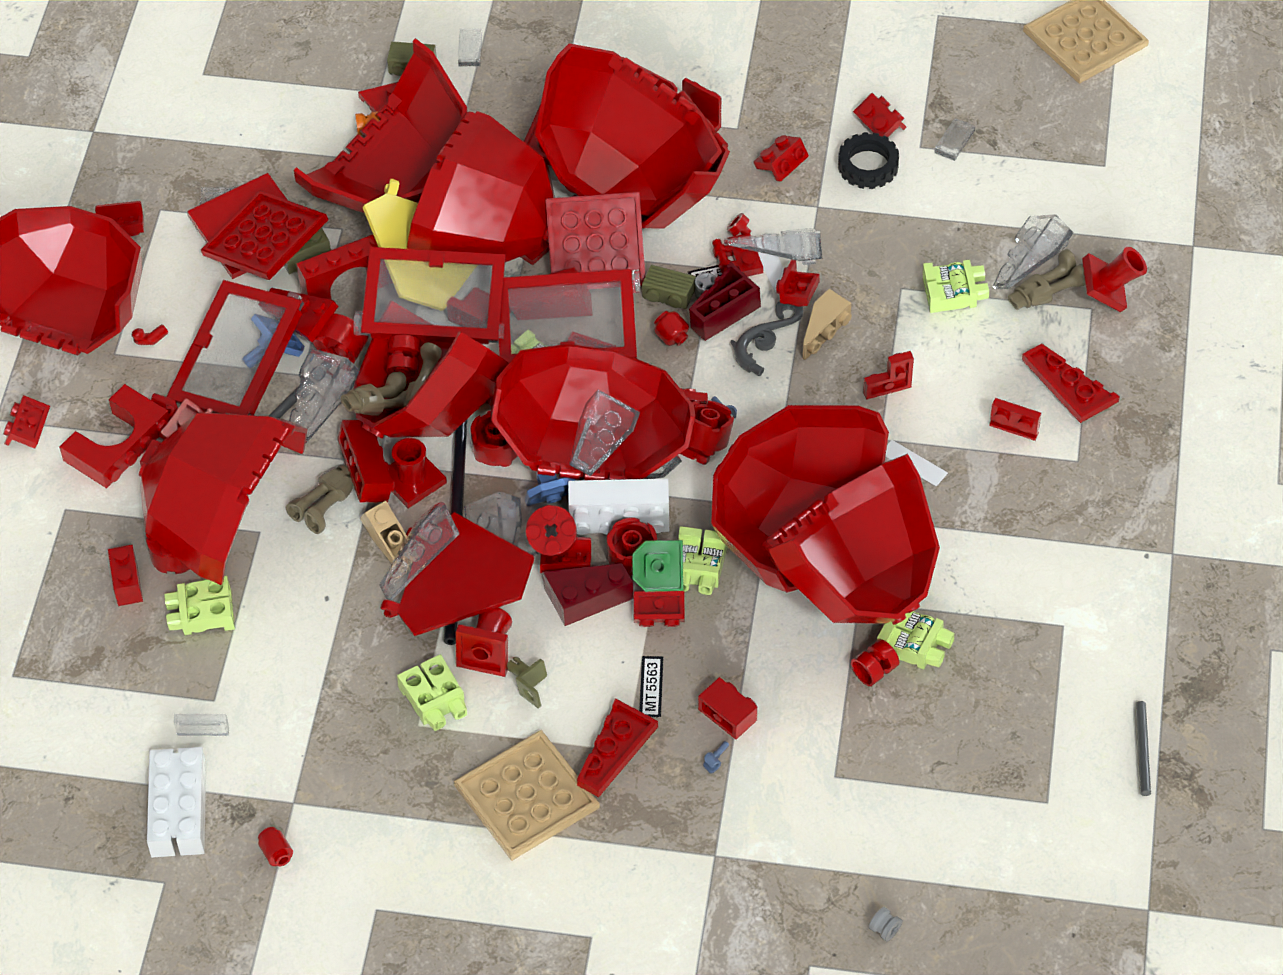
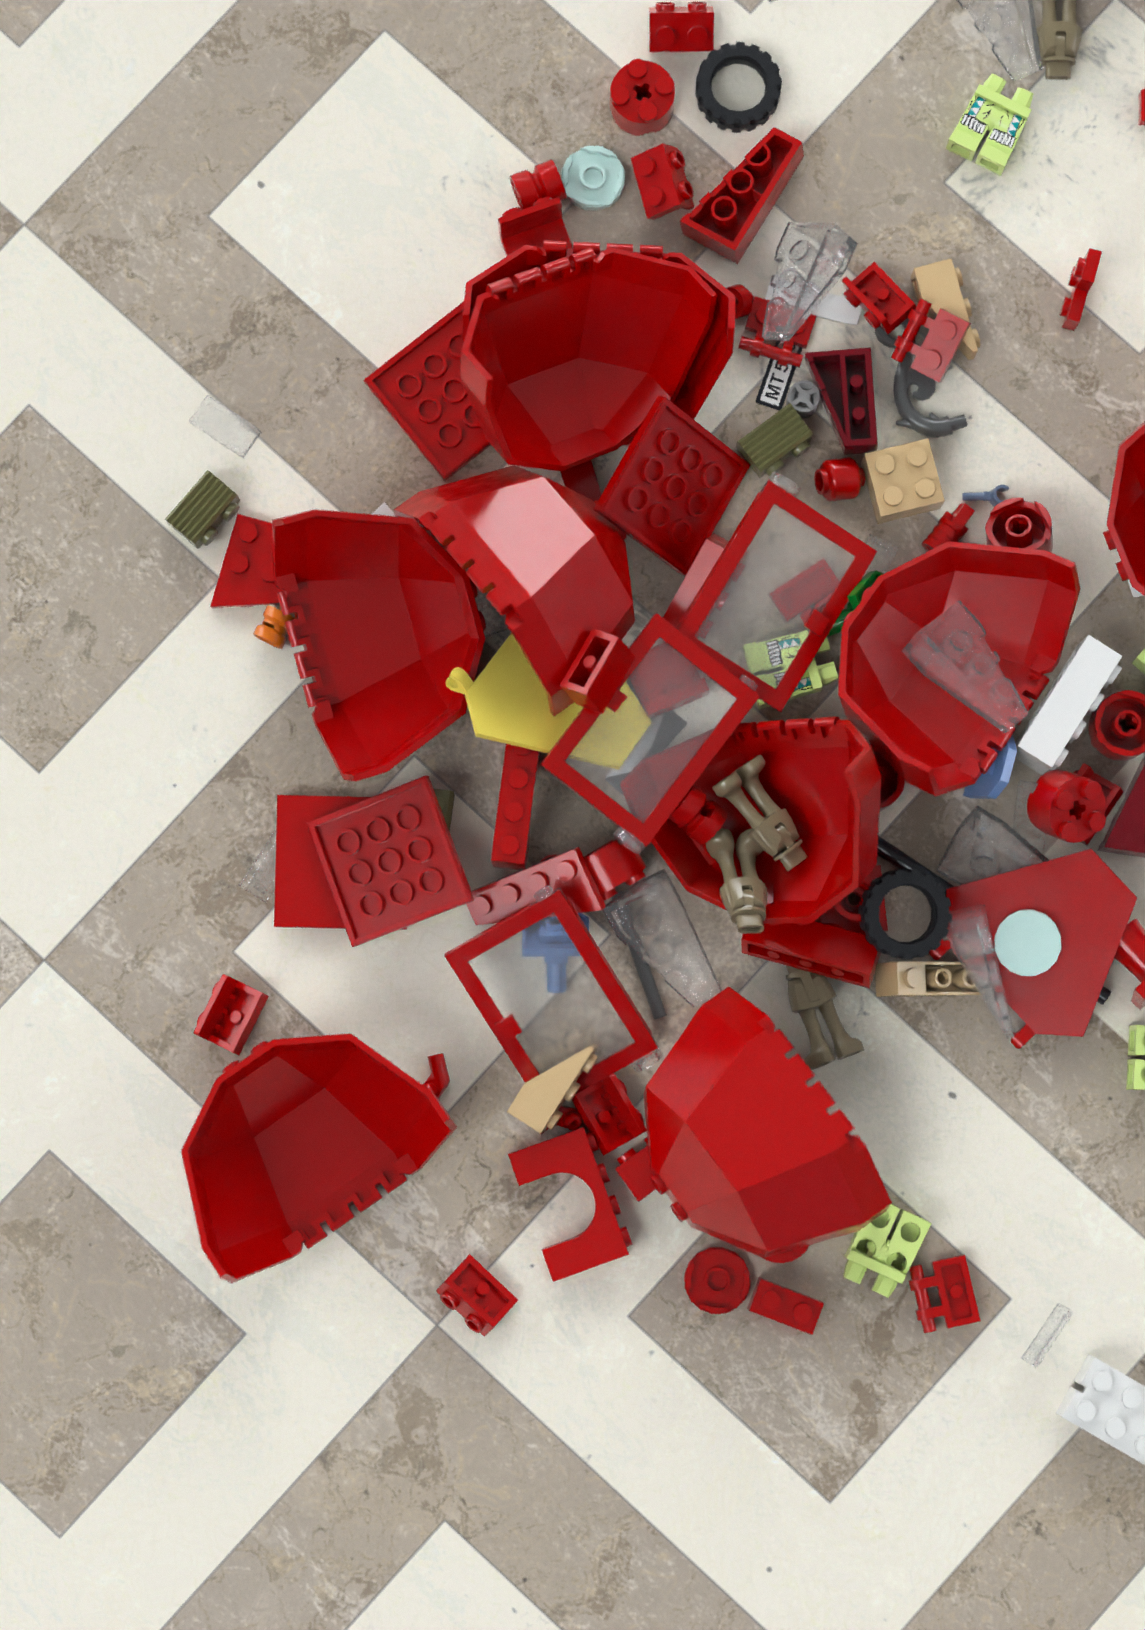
camera: 55 degrees left, 30 degrees up
(117, 533) = (717, 1280): none -> red tile
(179, 379) = (542, 1096): none -> tan slope
(196, 661) = (954, 1292): none -> red plate
(414, 454) = (939, 920): none -> black tyre
(443, 234) = (597, 671): none -> red brick
(450, 565) = (1027, 942): none -> light aqua tile
(695, 357) = (902, 481): none -> tan brick
(732, 101) = (534, 186): none -> red wheel
(756, 128) = (593, 178): none -> light aqua tile
(794, 325) = (939, 345): none -> plate
(805, 193) = (741, 202): none -> red wedge
(820, 118) = (638, 80): none -> red brick

